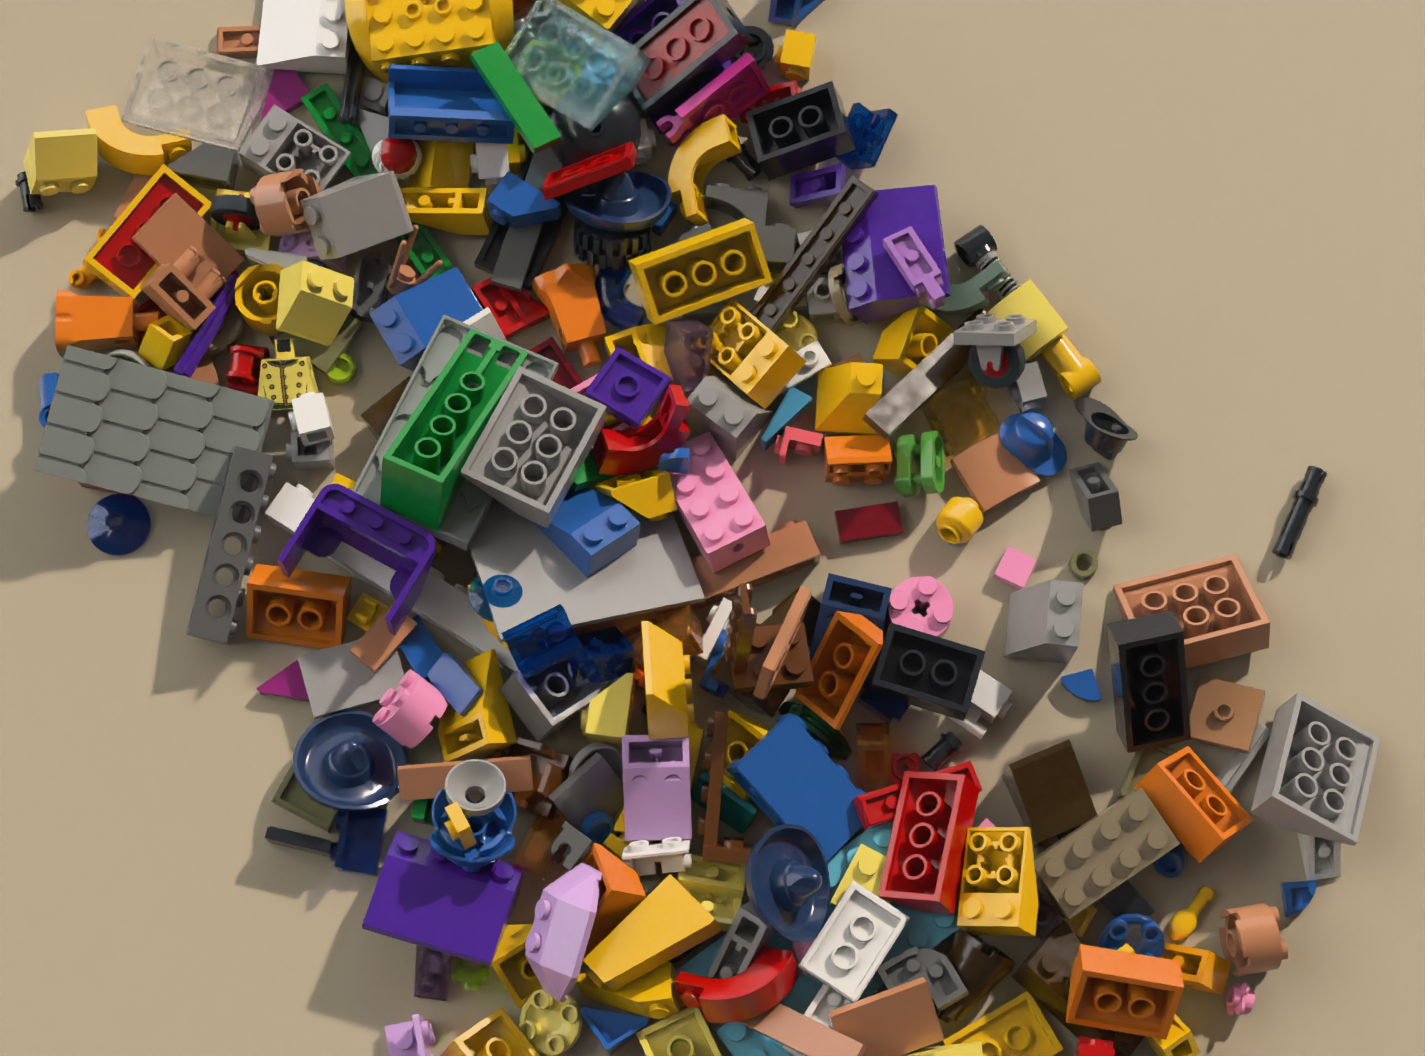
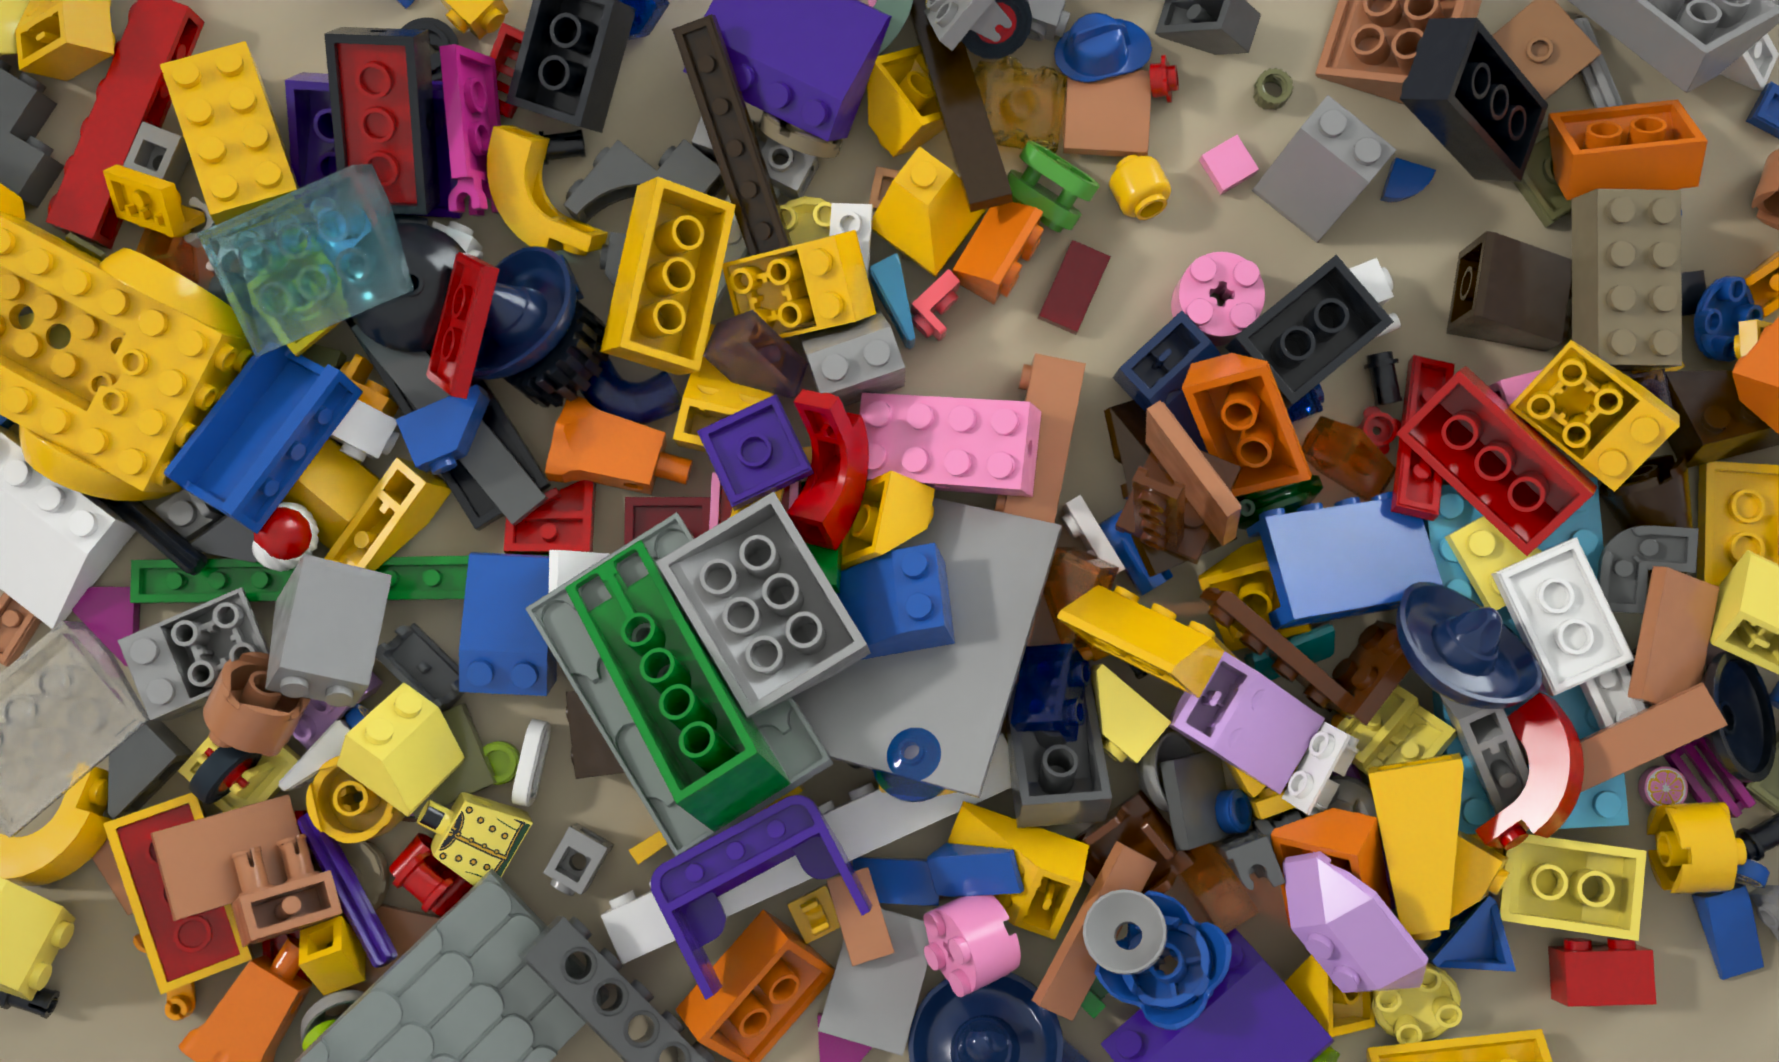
camera: 55 degrees left, 10 degrees up
(311, 418) = (545, 840): white brick -> none
(353, 385) = (531, 762): none -> white tile
(403, 276) = (437, 622): nougat plant -> none
(458, 826) = (1167, 984): yellow plate -> none
(515, 97) = (310, 351): green tile -> none
(542, 641) = (1013, 749): clear blue bracket -> none
(676, 462) = (886, 452): blue tile -> none
(817, 186) = (649, 81): dark purple slope -> none
(916, 265) = (834, 28): medium lavender hinge -> none
(1039, 491) = (1163, 79): none -> red plate
(1185, 920) = (1726, 246): yellow piece -> none

